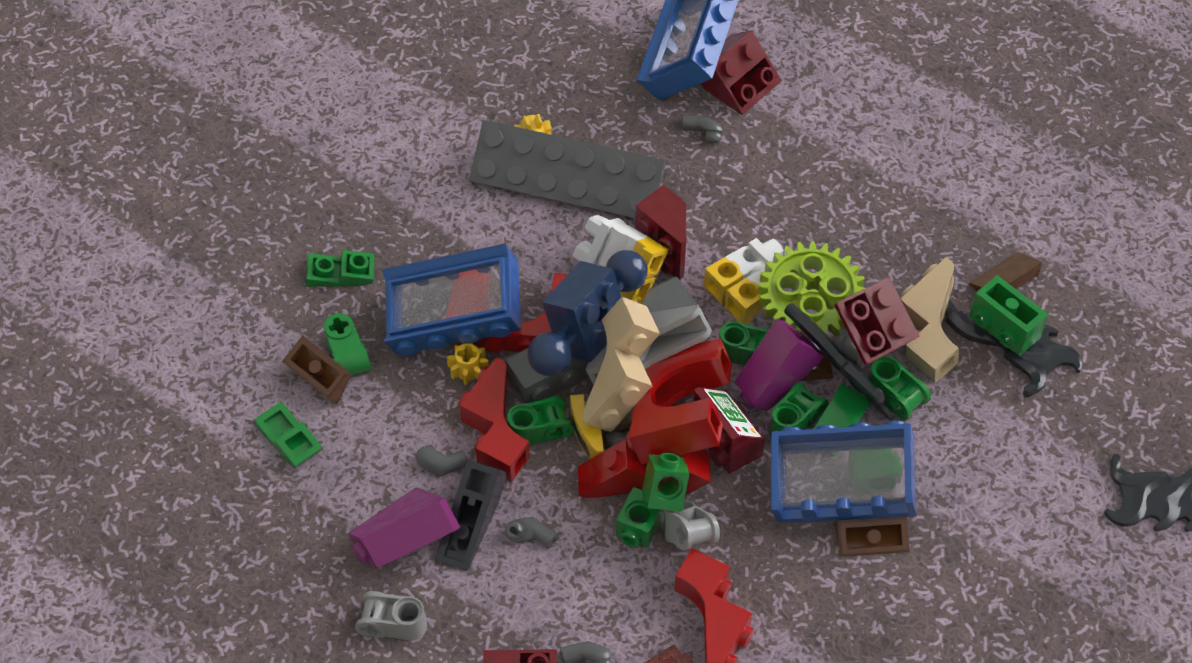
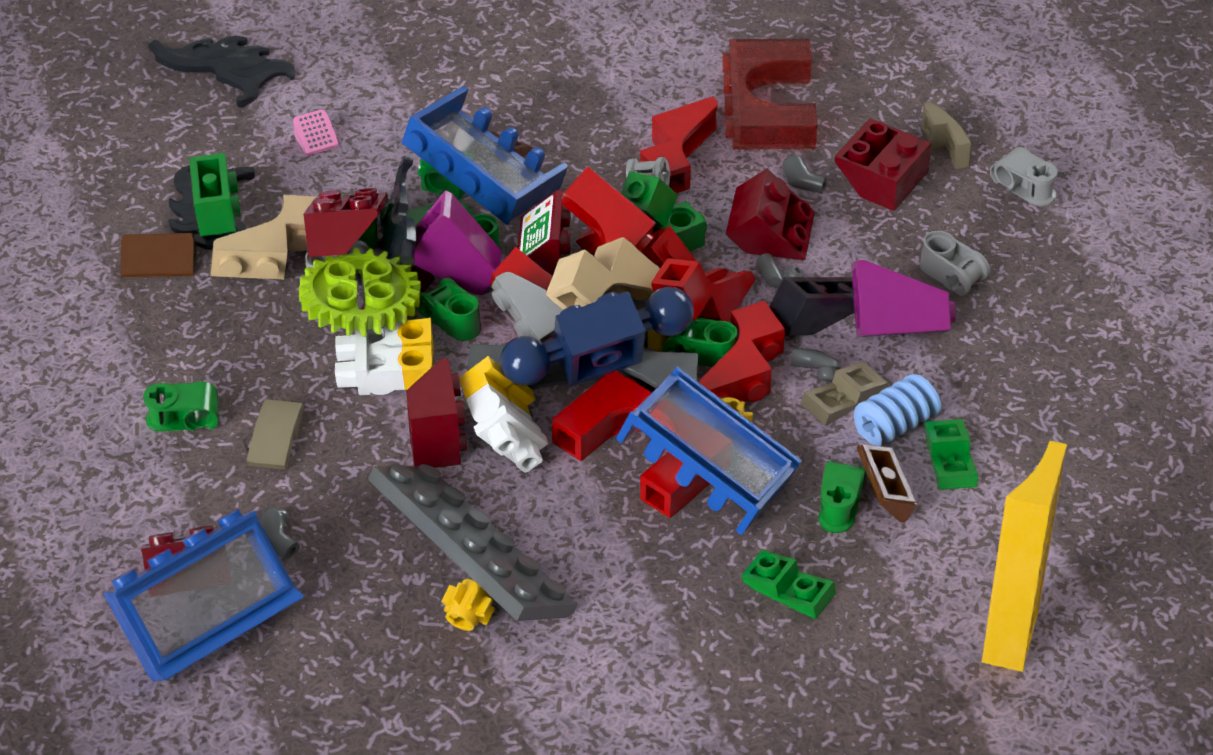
camera: 145 degrees left, 10 degrees down
(145, 249) = (1023, 562): none -> yellow arch
(345, 439) = (896, 409): none -> light blue piece
(400, 448) = (847, 390): none -> dark tan slope
(560, 444) = (712, 293): none -> red arch
(573, 574) = (770, 218): none -> dark red slope
(776, 187) = (274, 434): none -> dark tan slope
(852, 166) = (184, 406): none -> green piece
(1018, 457) = (315, 132): none -> bright pink slope

